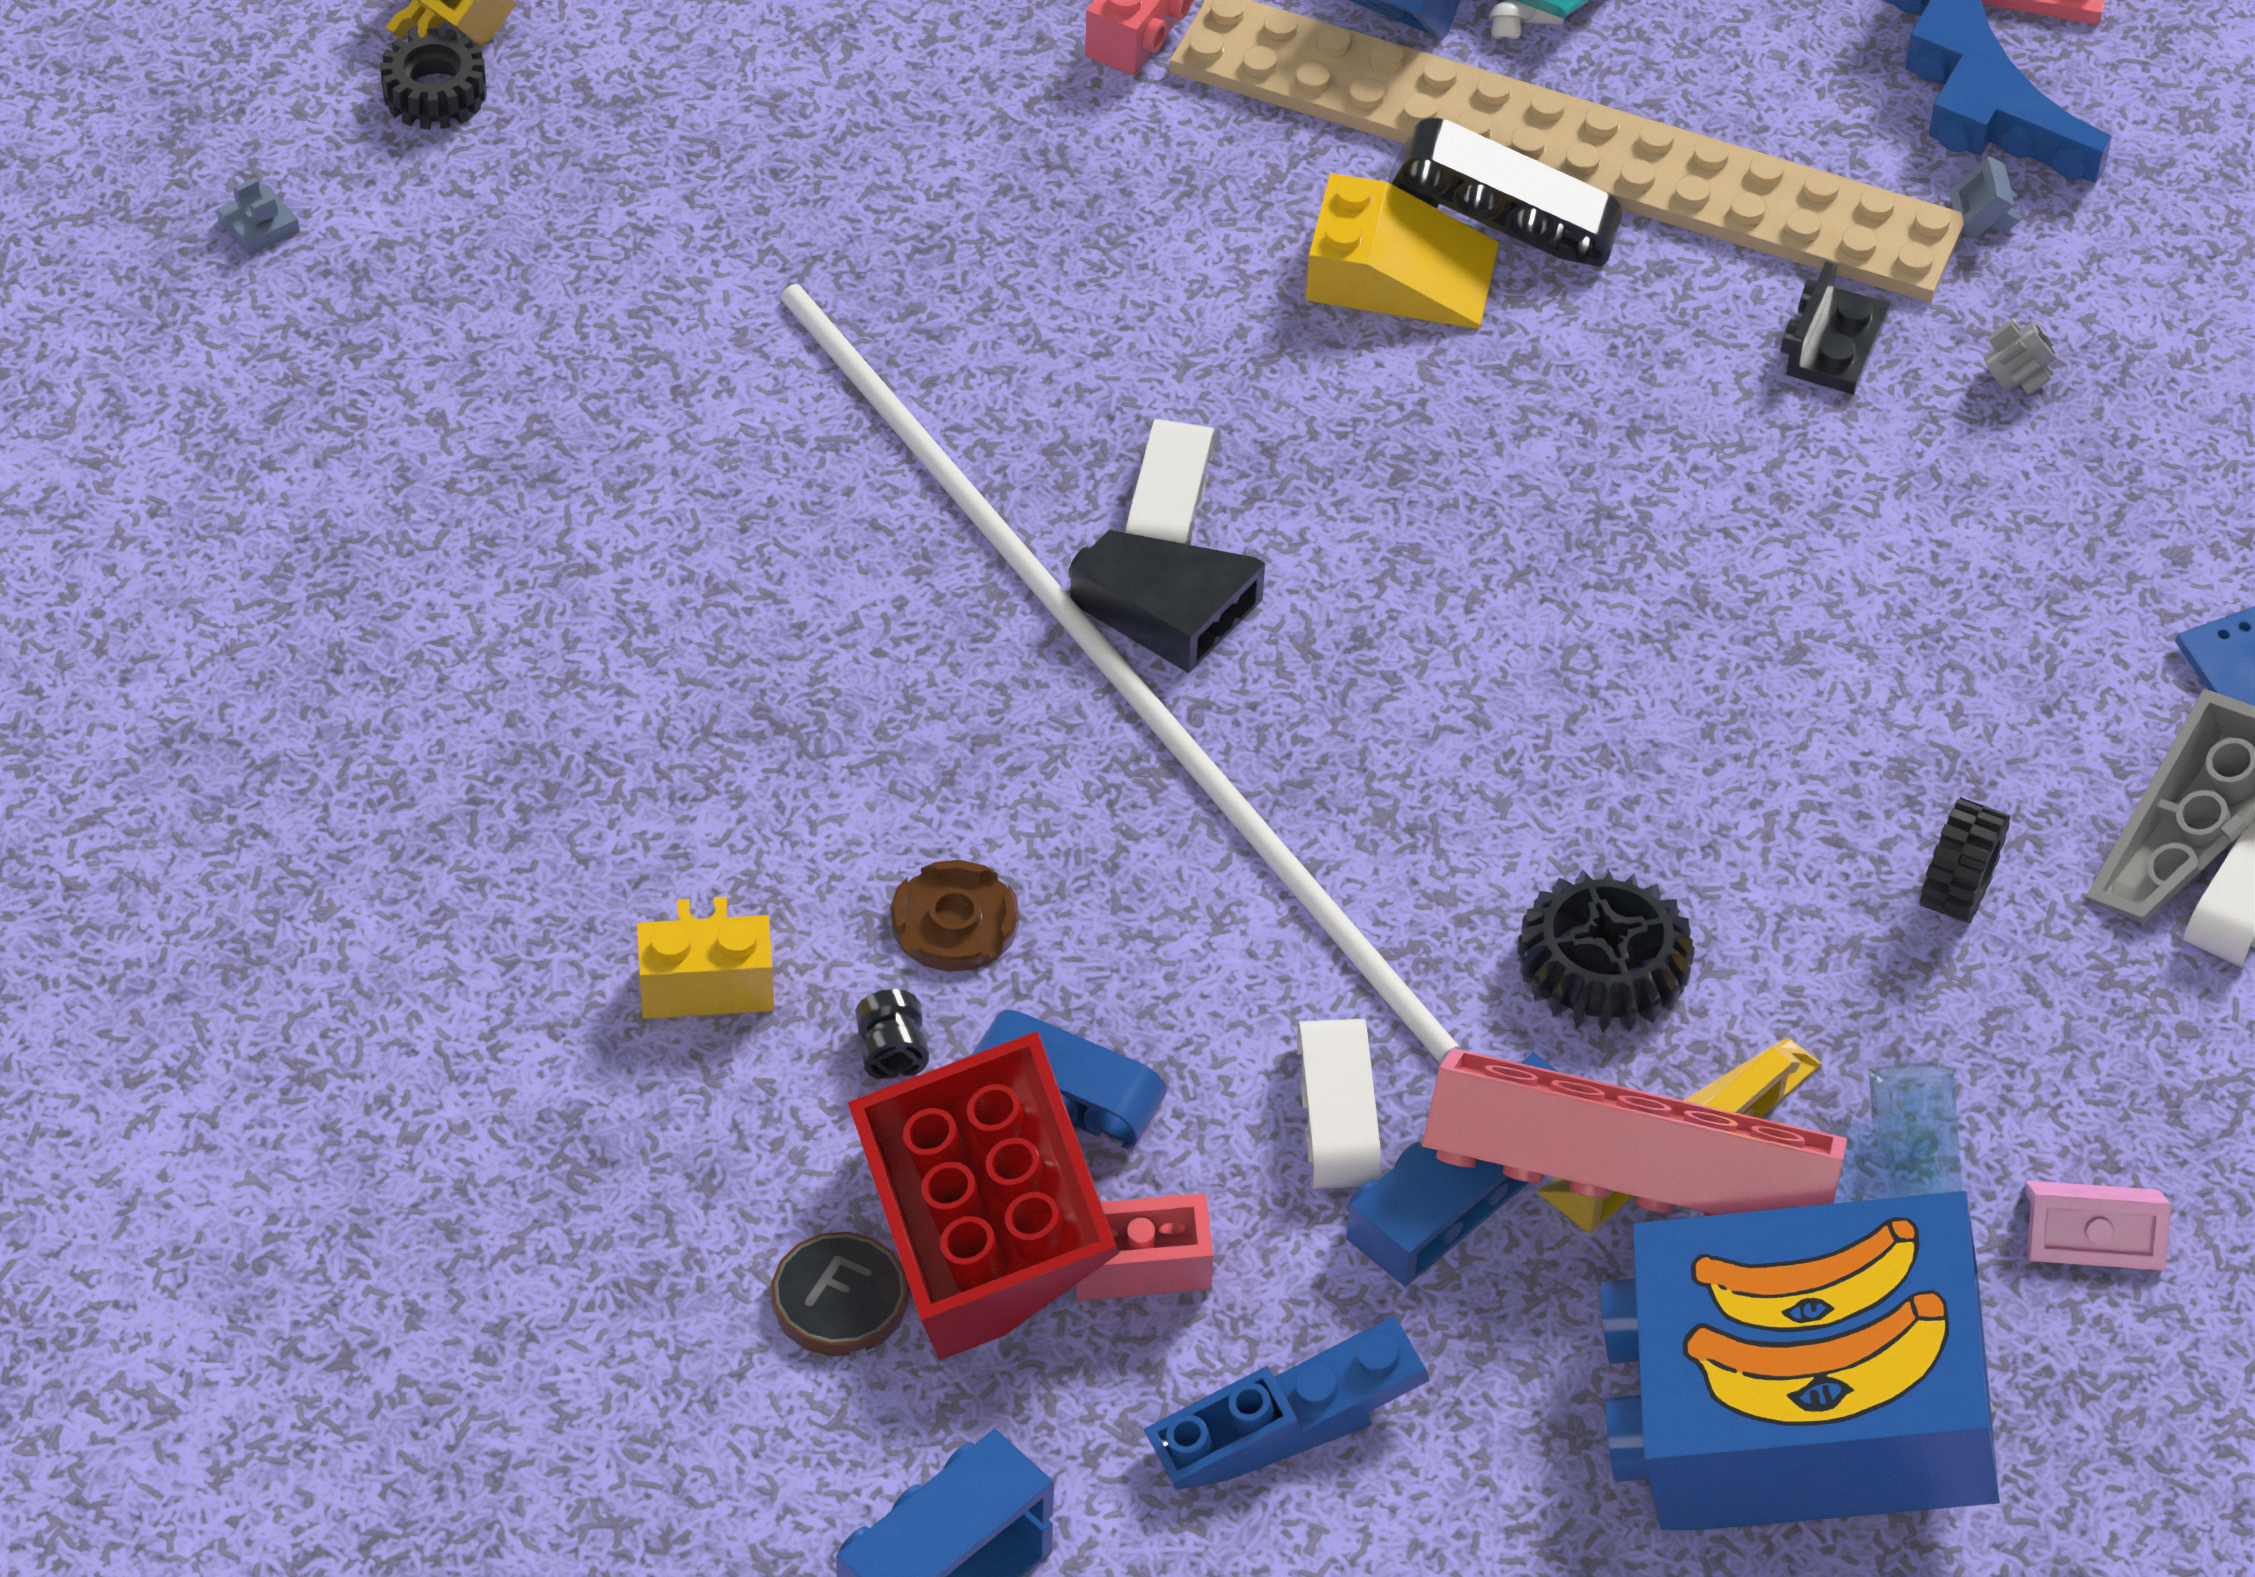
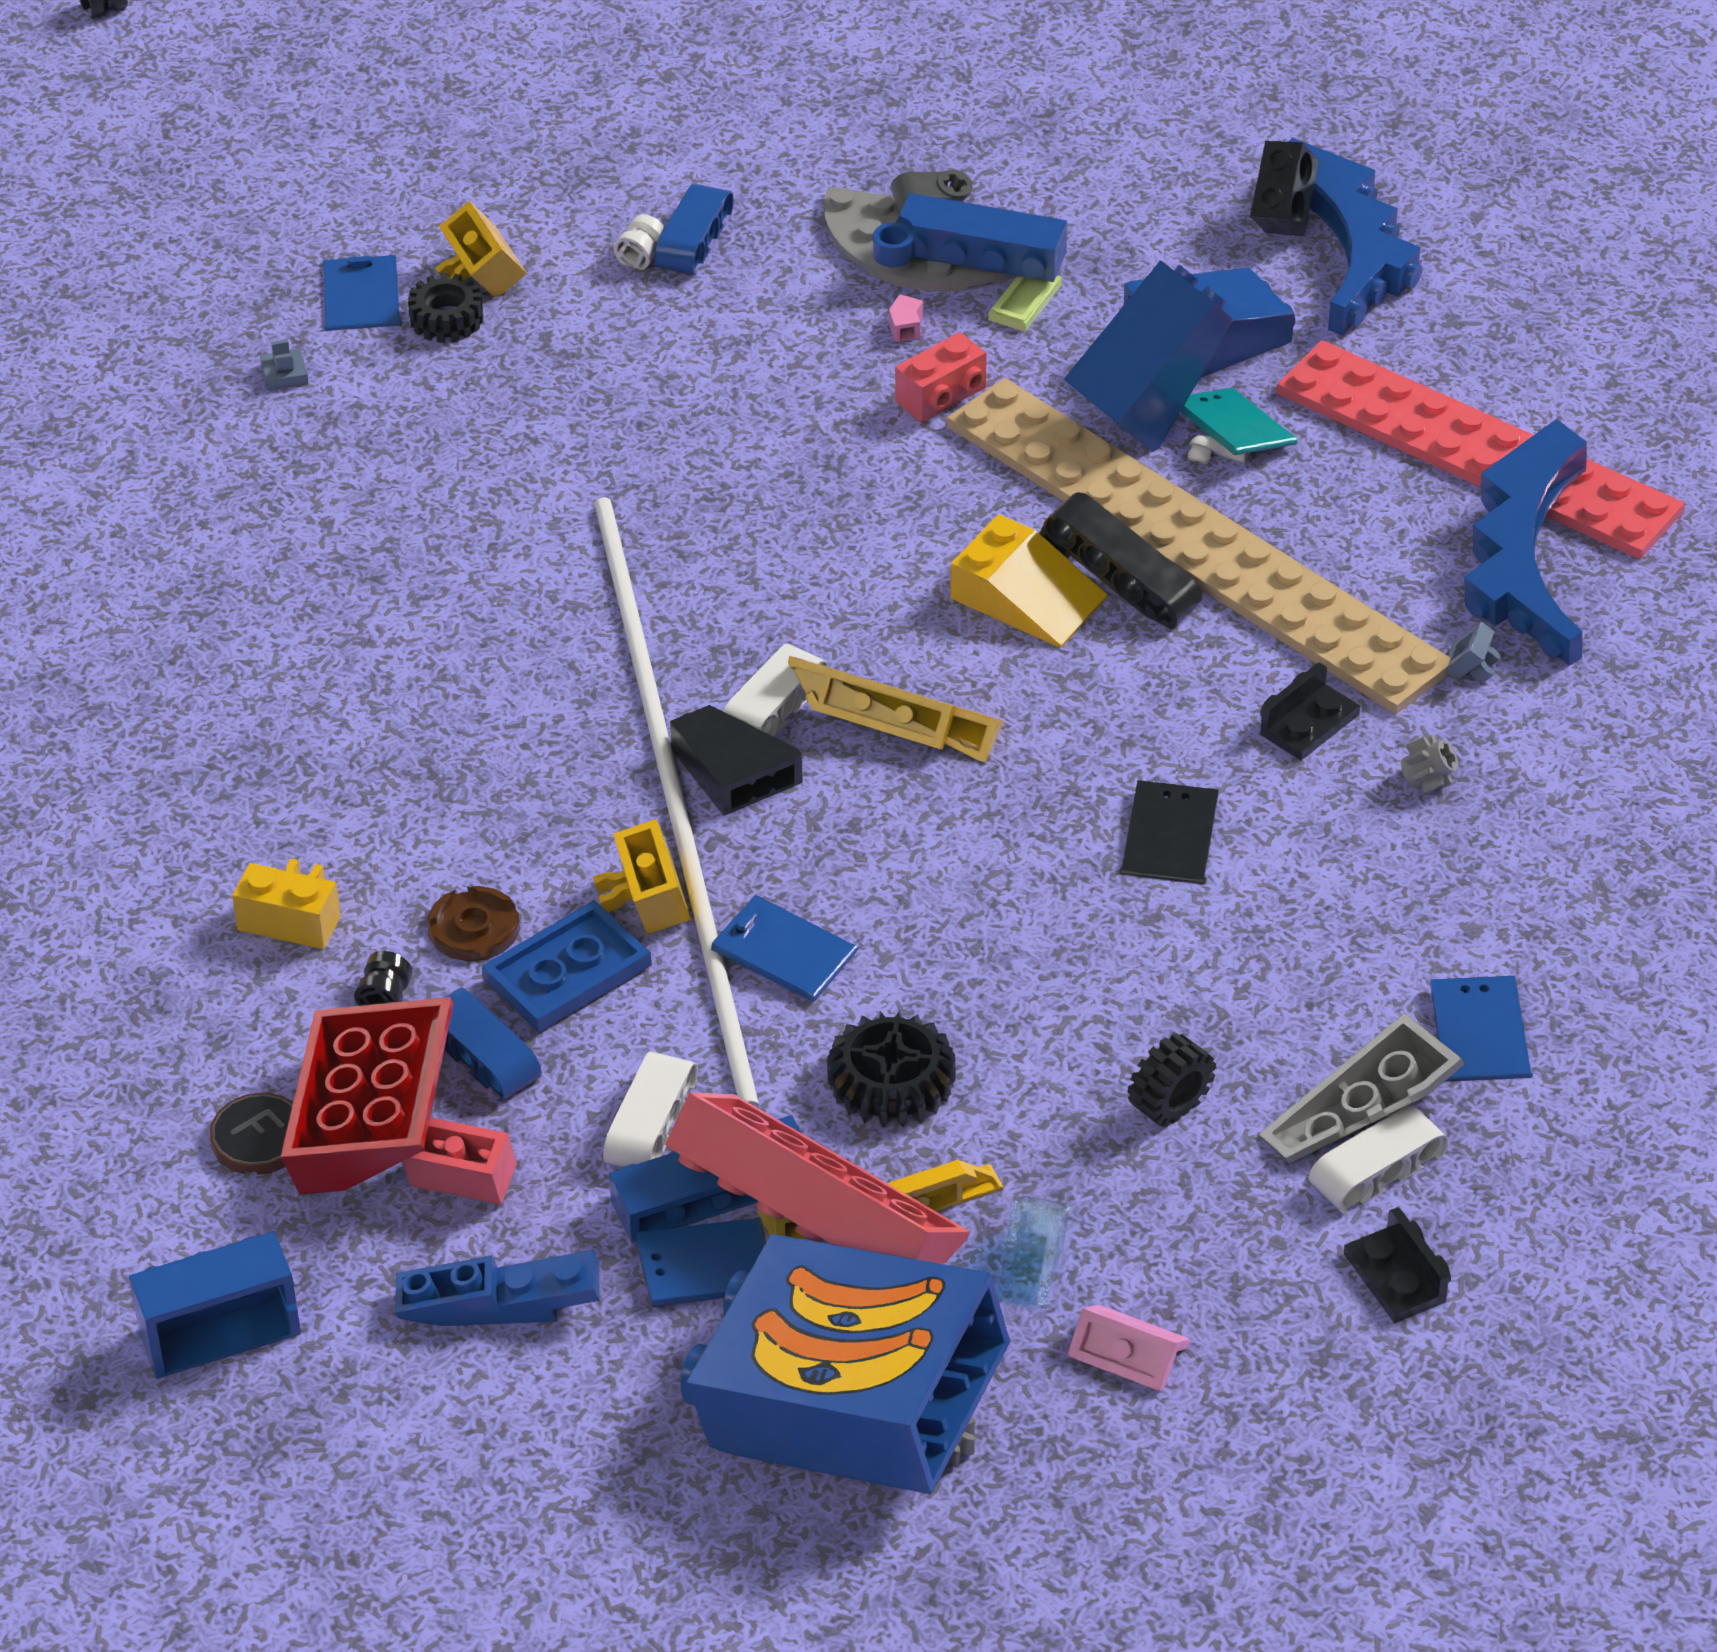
camera: 25 degrees right, 5 degrees down
(301, 88) = (361, 294): none -> blue container
(1113, 937) = (566, 965): none -> blue plate
(1159, 786) = (646, 879): none -> yellow brick
(1339, 469) = (896, 710): none -> yellow wedge
(1374, 829) = (784, 948): none -> blue container
(1513, 1282) = (697, 1259): none -> blue container
(1756, 534) = (1170, 834): none -> black container

